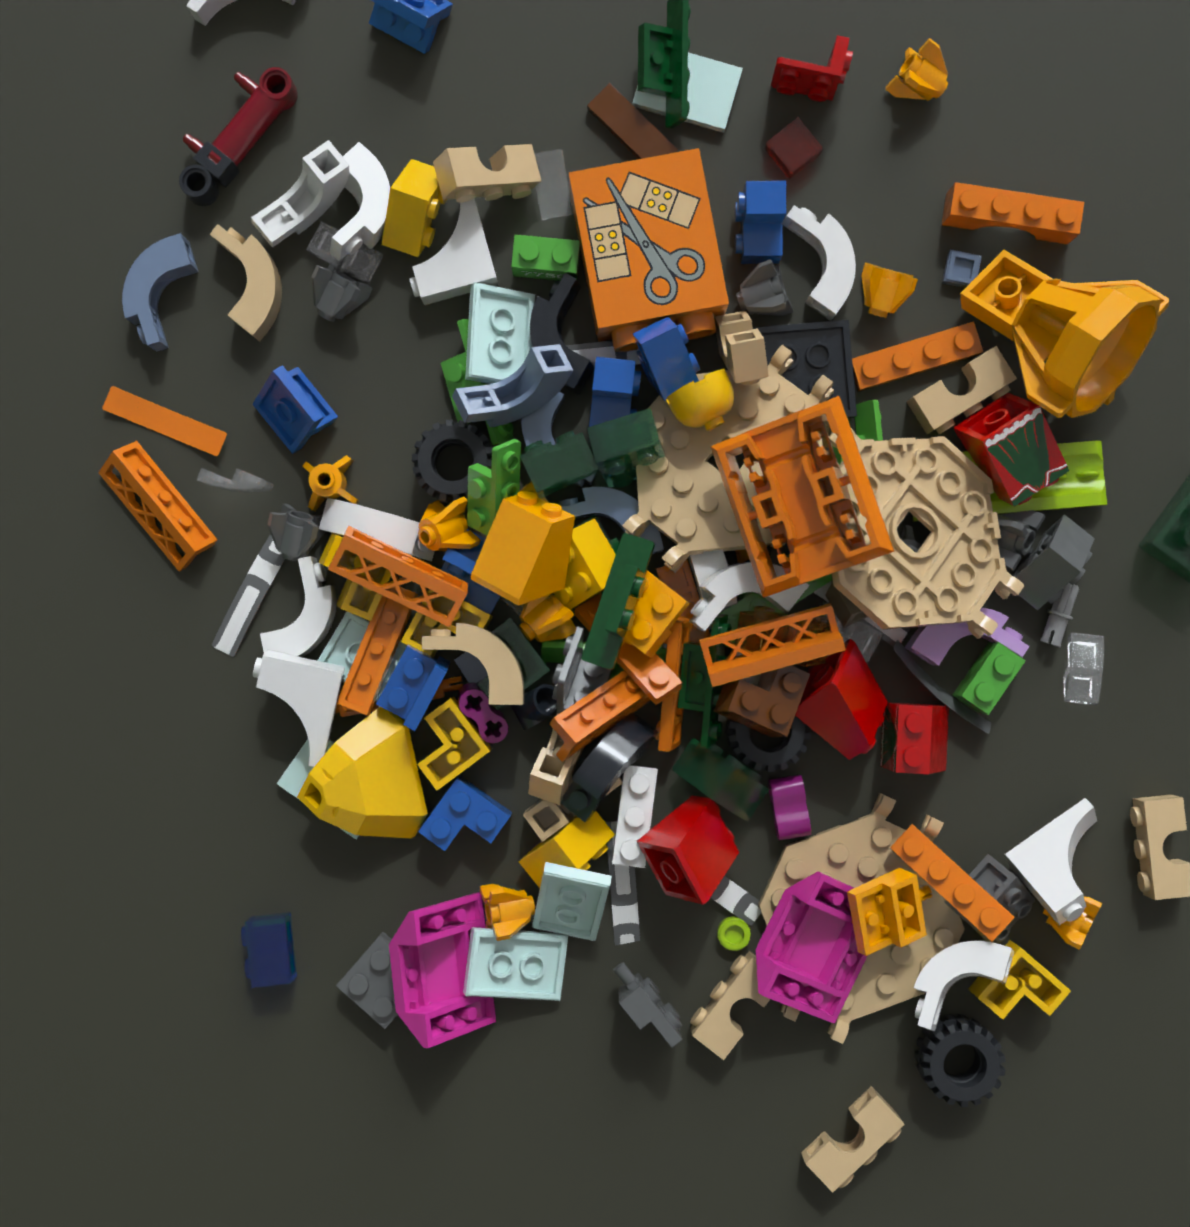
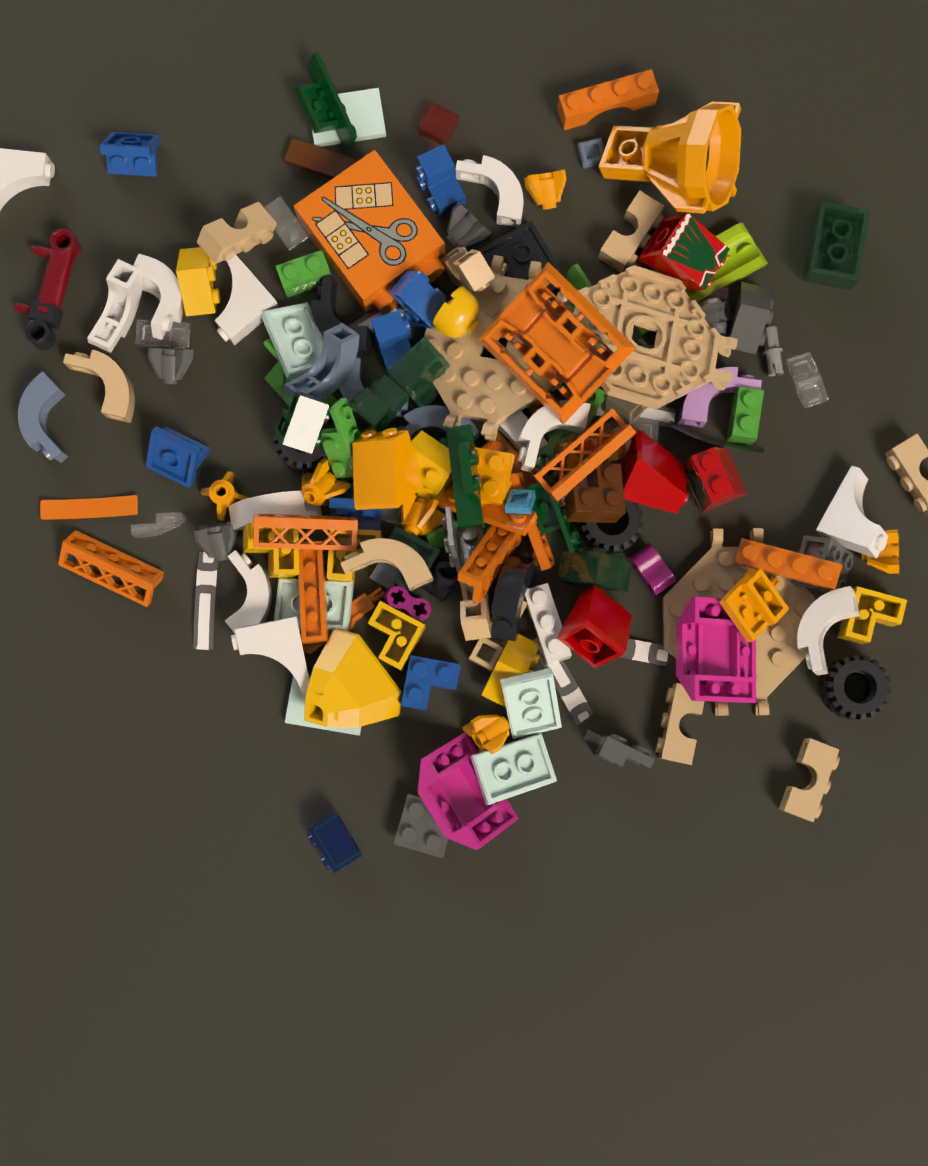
camera: 25 degrees left, 5 degrees down
(413, 685) = (349, 603): blue bracket -> none
(454, 447) = (303, 422): none -> brick
(669, 661) = (520, 501): none -> dark azure tile
(733, 933) = (656, 676): lime tile -> none
(812, 79) = (428, 72): red bracket -> none
(916, 356) = (589, 224): orange plate -> none
(922, 74) = (502, 37): light orange brick -> none

